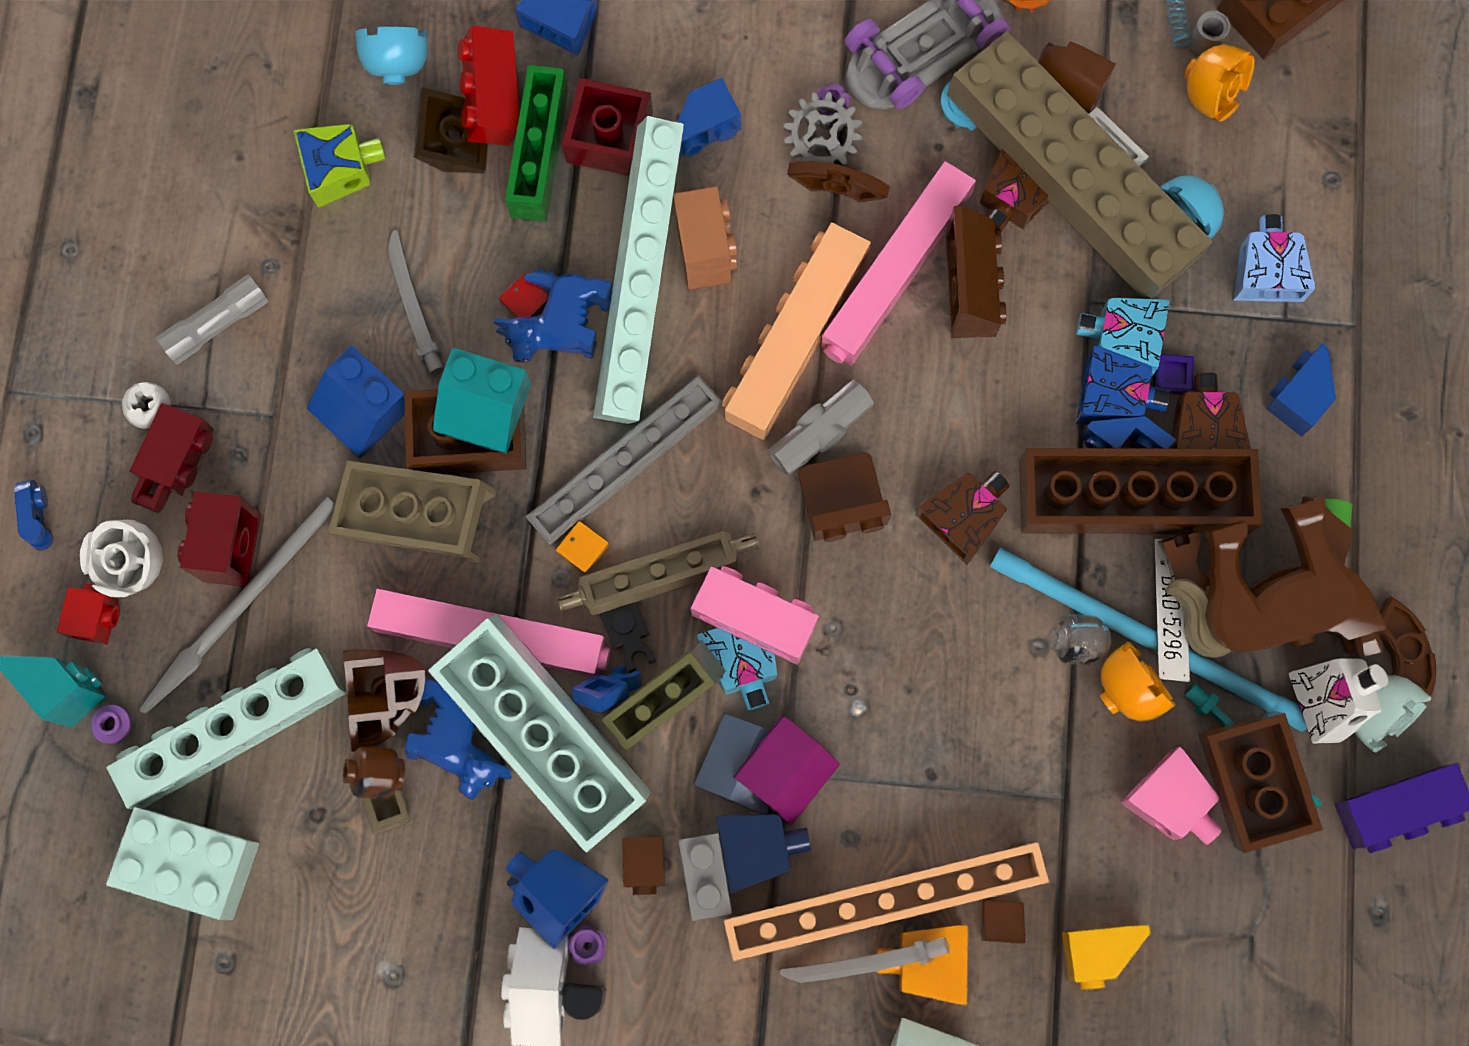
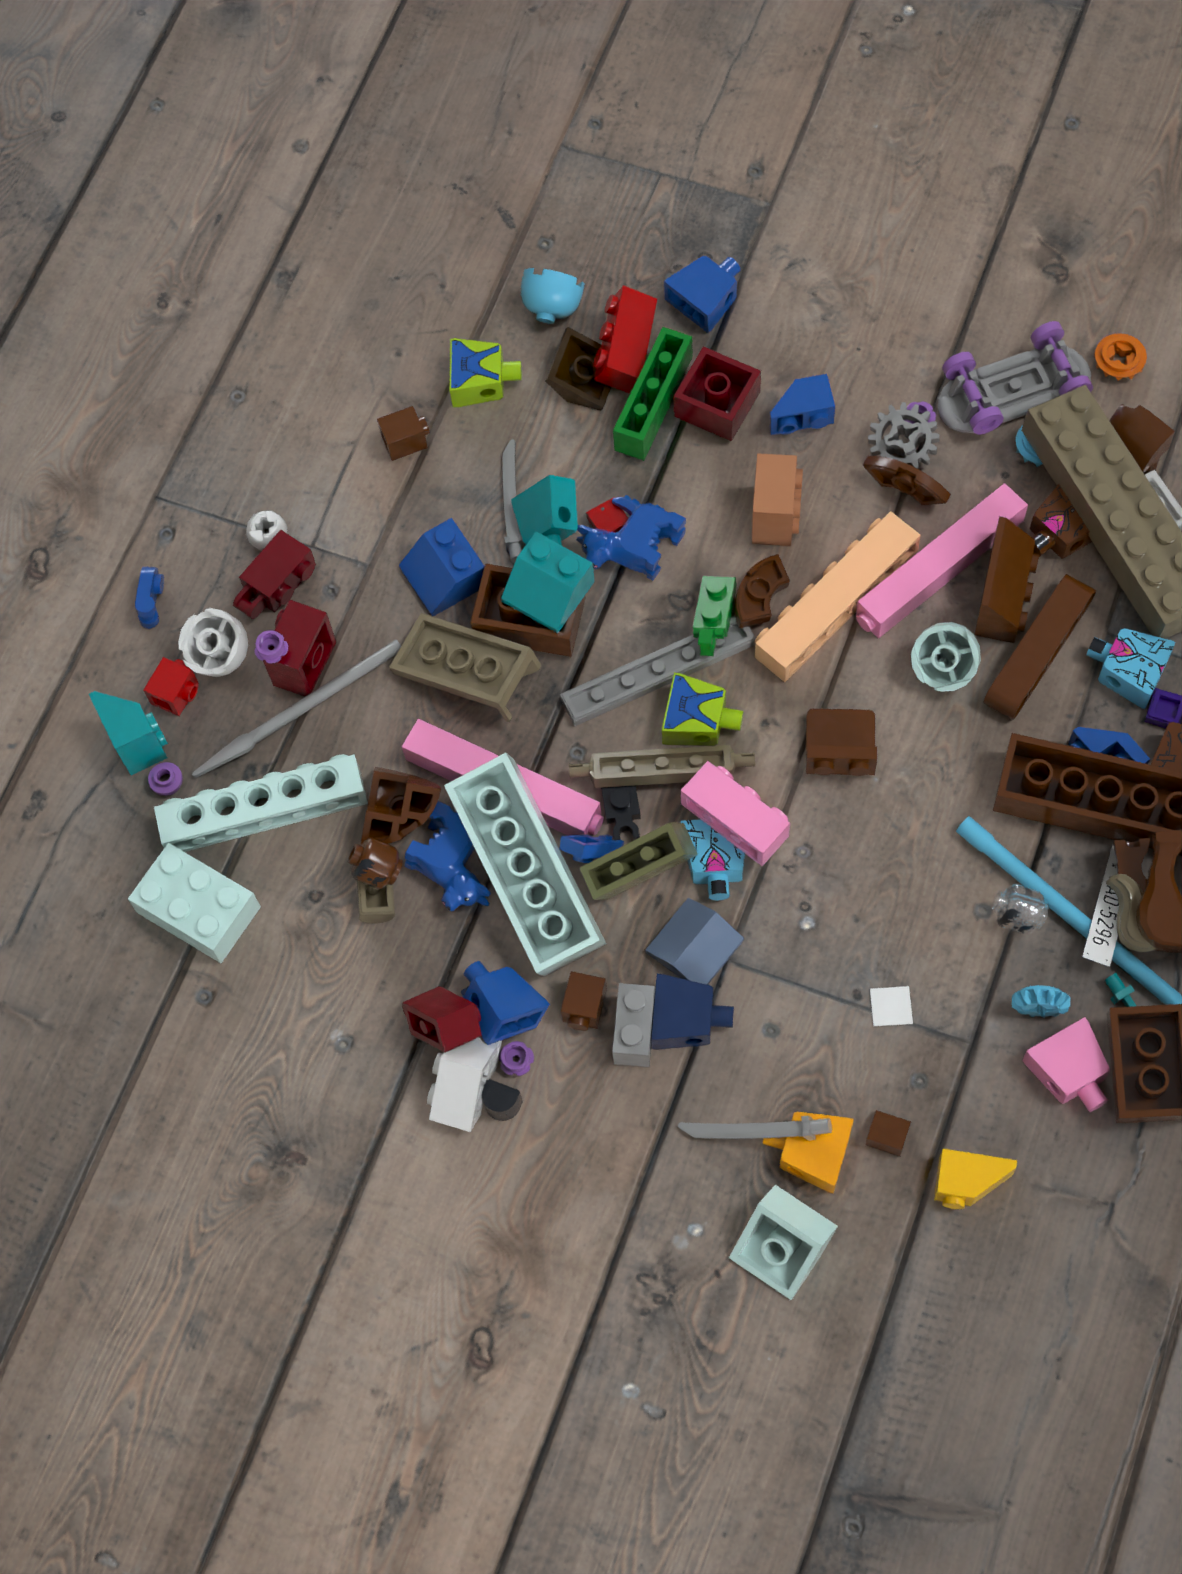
camera: 20 degrees right, 10 degrees down
(177, 555) = (268, 639): none -> medium lavender plate
(189, 335) = (318, 483): light grey axle -> none
(270, 252) = (403, 432): none -> reddish brown brick
(457, 312) = (547, 509): none -> teal torso
(496, 932) = (442, 1018): none -> dark red brick
(582, 547) = (602, 731): light orange tile -> none
(638, 270) = (710, 513): light aqua brick -> none
(669, 382) = (713, 611): none -> green hinge
(681, 502) = (697, 713): none -> lime torso
(709, 345) = (757, 589): none -> reddish brown tile
(786, 770) = (730, 954): magenta slope -> none
(820, 427) = (836, 680): light grey piece -> none
(885, 901) = (787, 1082): light nougat brick -> none
(933, 375) = (946, 656): none -> light aqua cylinder
(965, 513) = (945, 780): reddish brown torso -> none
(970, 778) = (891, 1006): none -> white sticker
(1026, 337) = (1039, 646): none -> reddish brown beam
(1117, 388) = (1111, 706): blue torso -> none
(1128, 739) = (1041, 1001): none -> medium azure gear
(1133, 686) = (1057, 958): light orange cylinder -> none

